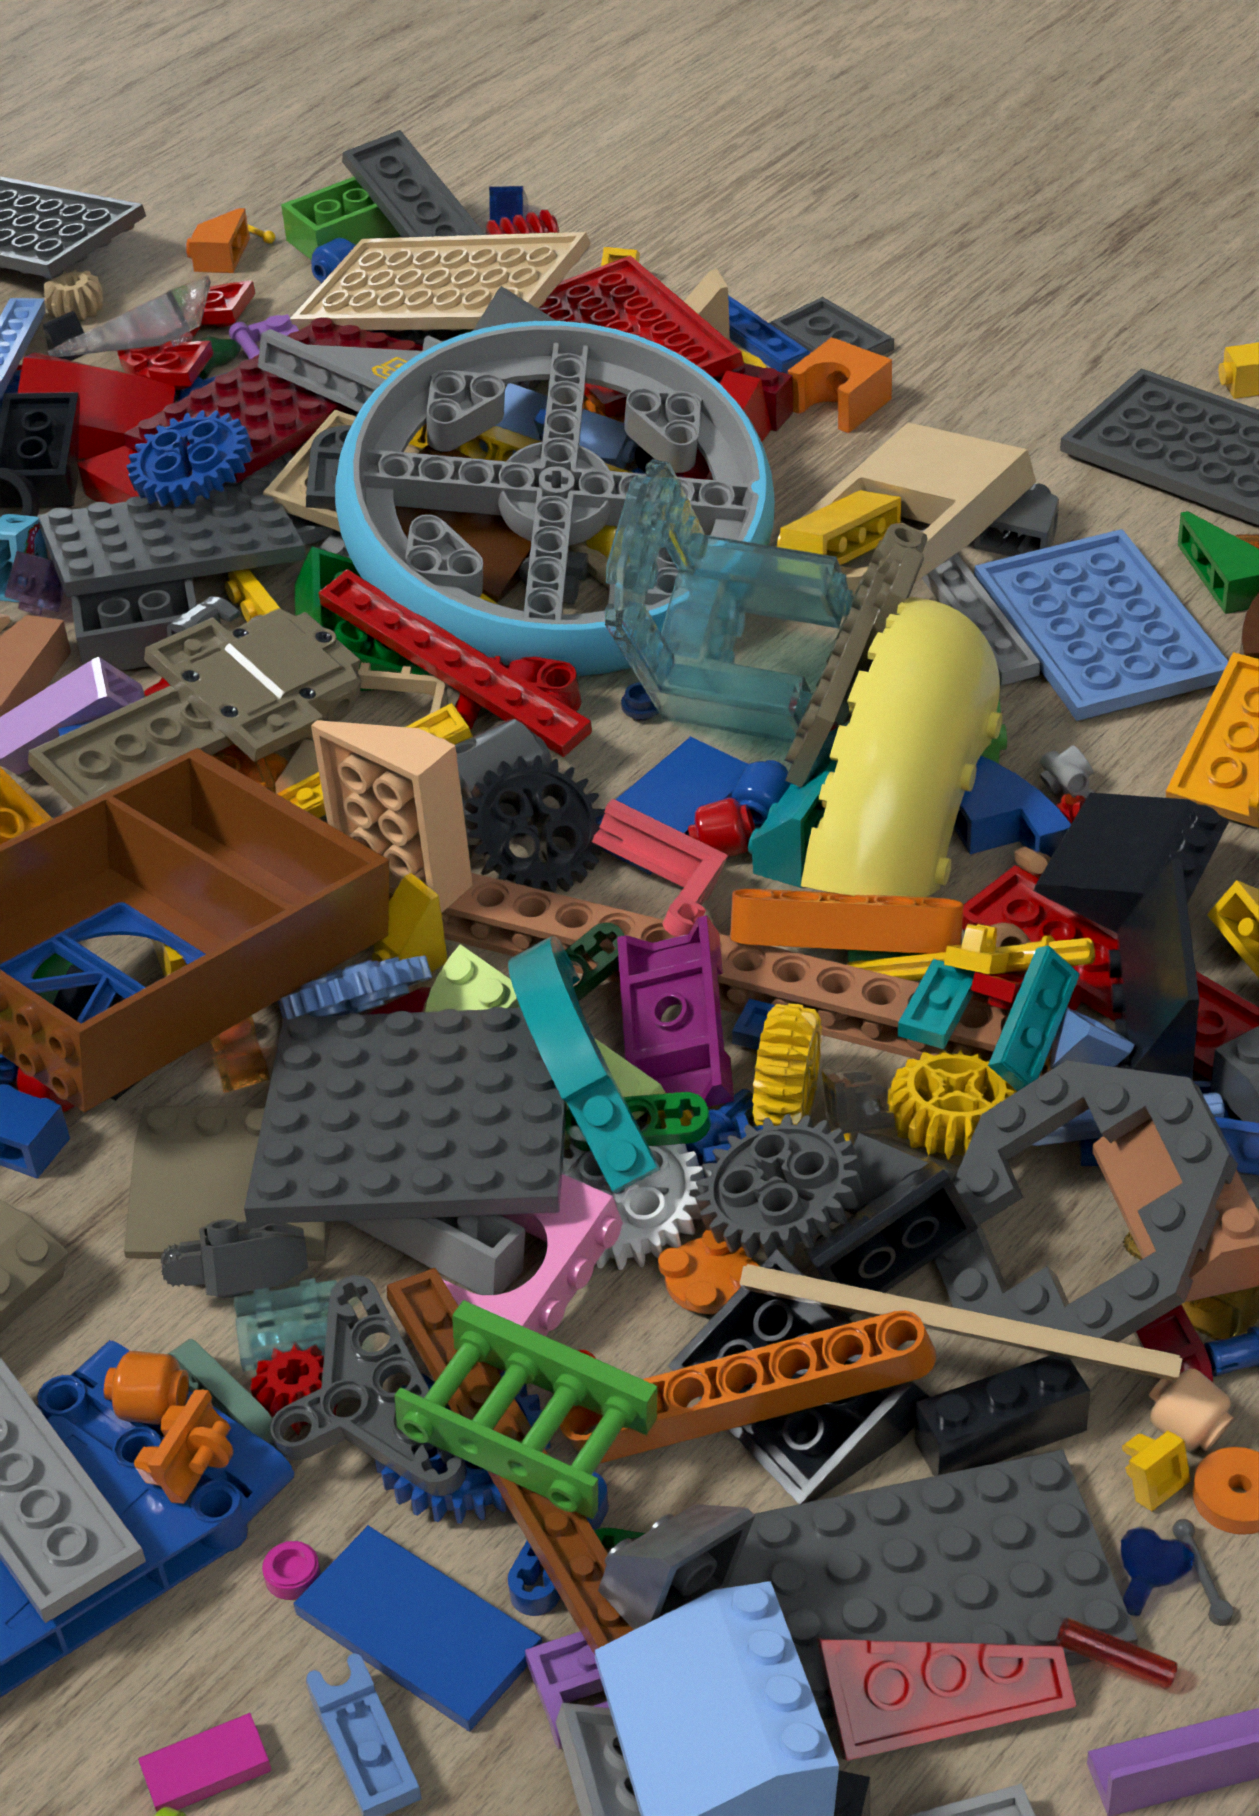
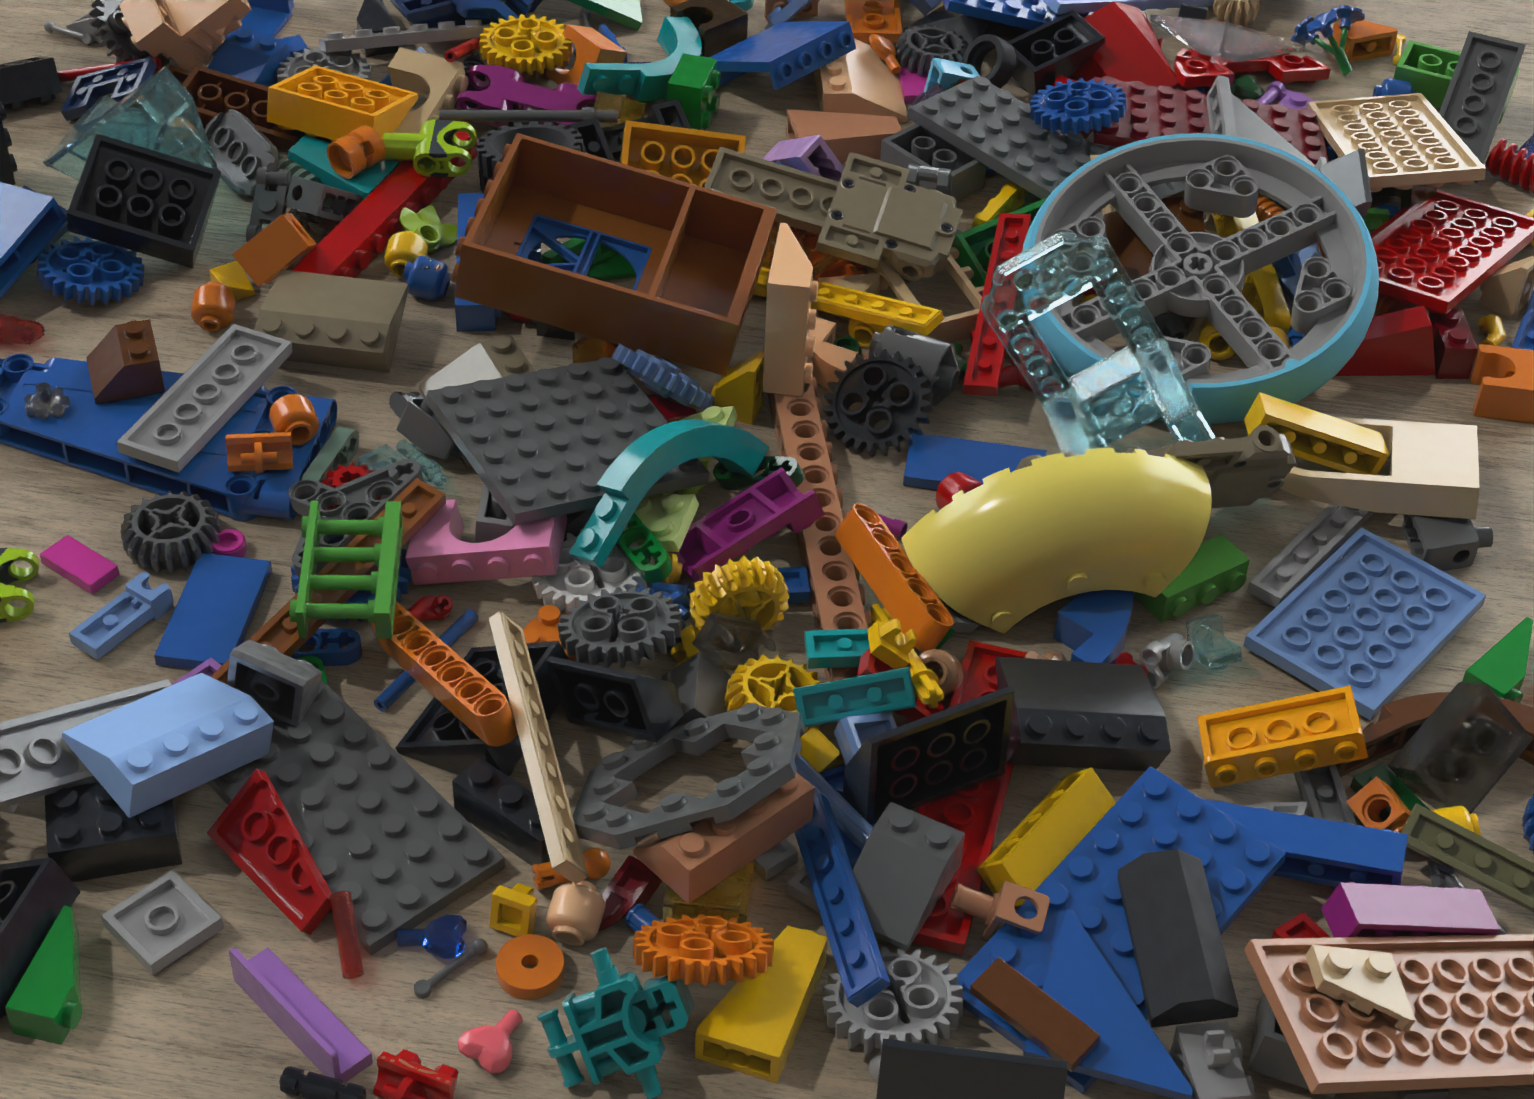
camera: 55 degrees right, 0 degrees up
(204, 241) = (1306, 33): none -> blue plant
(211, 1652) = (169, 531): none -> dark grey gear
(665, 854) = (909, 492): coral hinge -> none
(683, 1451) = (405, 680): none -> blue piece
(719, 906) = (897, 527): none -> magenta piece
(1087, 734) = (1209, 642): none -> clear light blue bracket
(1110, 1394) = (596, 862): none -> orange pin

